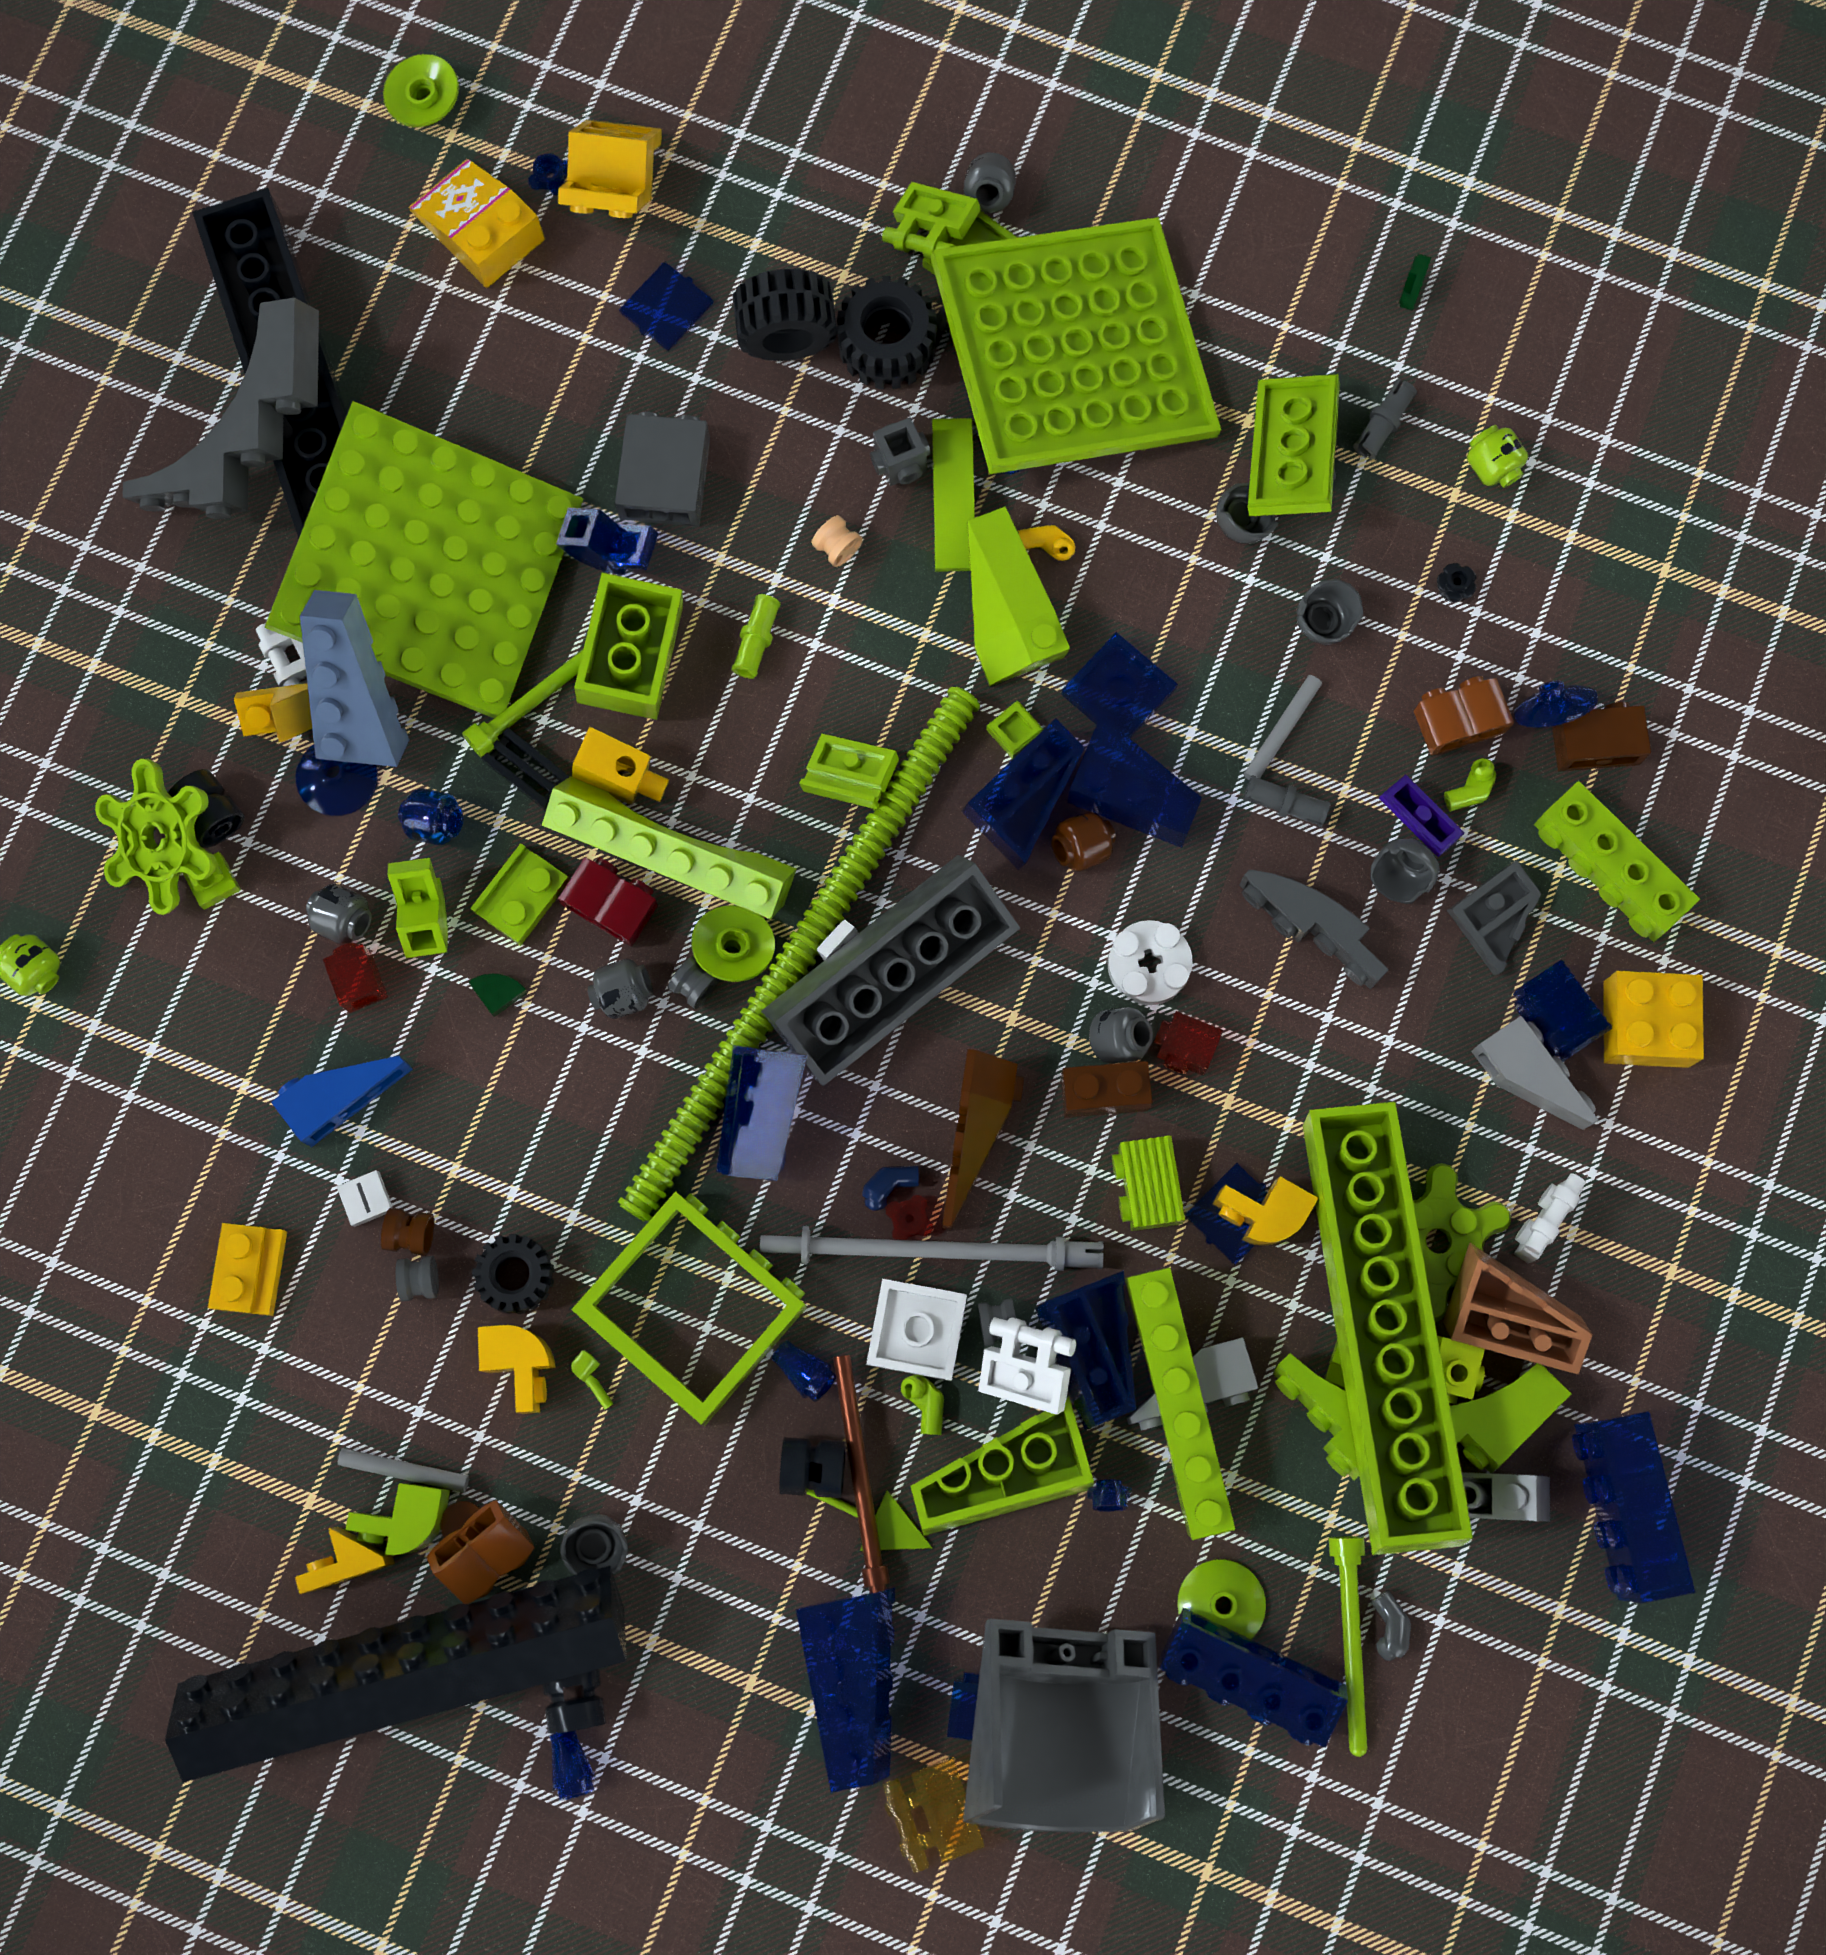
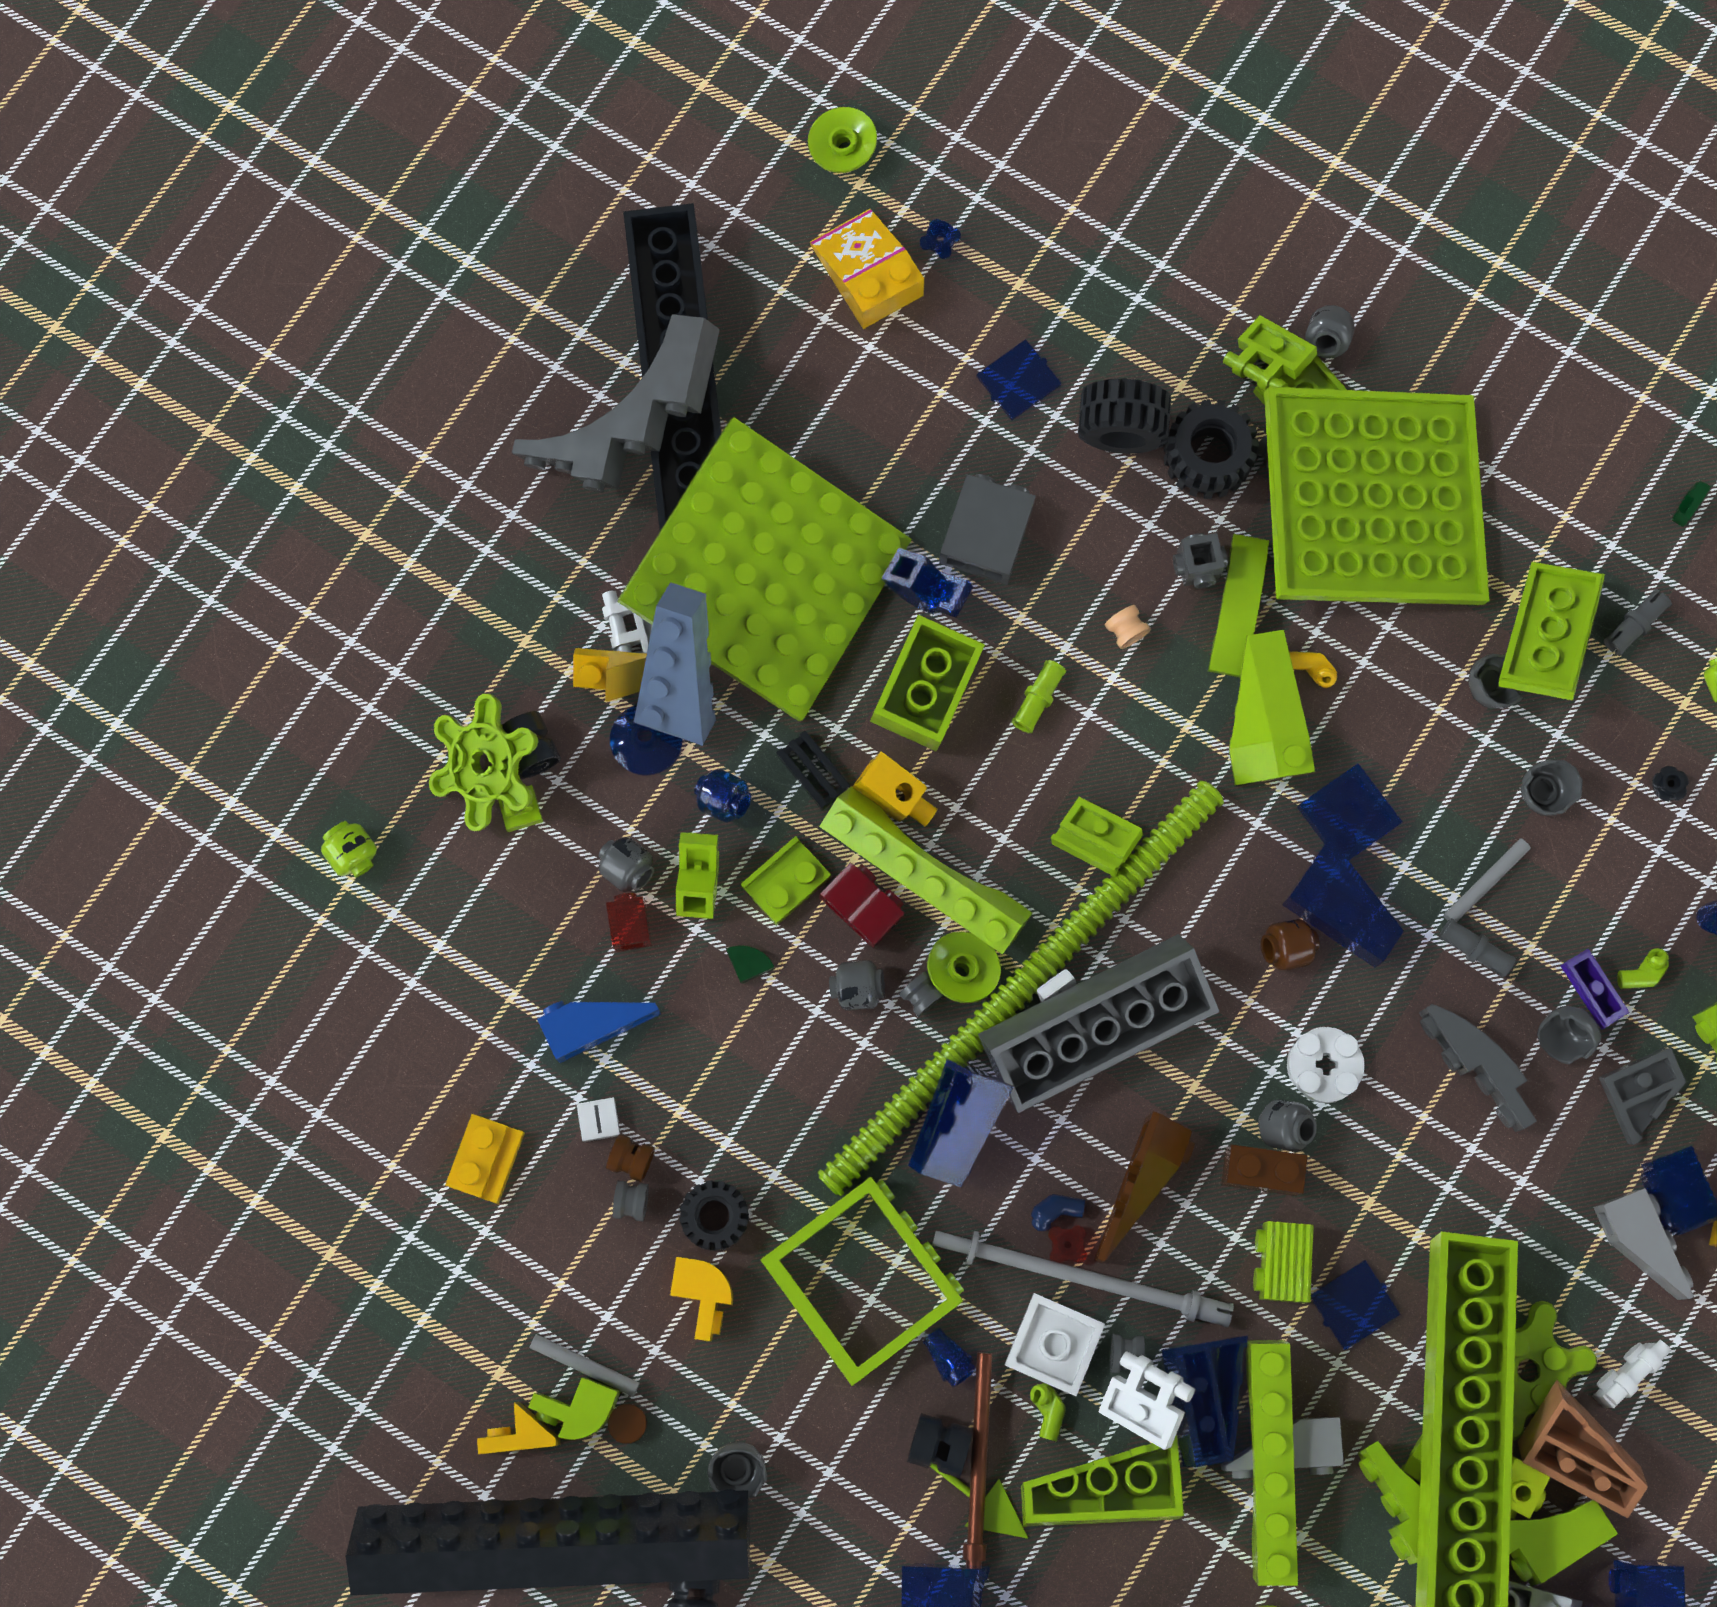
camera: 10 degrees right, 0 degrees up
(480, 1552) = (639, 1453): dark orange brick -> none
(483, 736) = (782, 733): lime piece -> none
(583, 1367) = (758, 1311): lime hand -> none
(609, 168) = (996, 247): yellow bracket -> none
(1014, 729) = (1249, 830): lime tile -> none
(1023, 794) = (1246, 892): clear blue wedge -> none
(1109, 1495) = (1192, 1529): clear blue plate -> none
(1187, 1044) = (1344, 1145): clear red brick -> none
(1275, 1219) = (1389, 1318): yellow brick -> none
(1463, 715) = (1650, 906): dark orange brick -> none

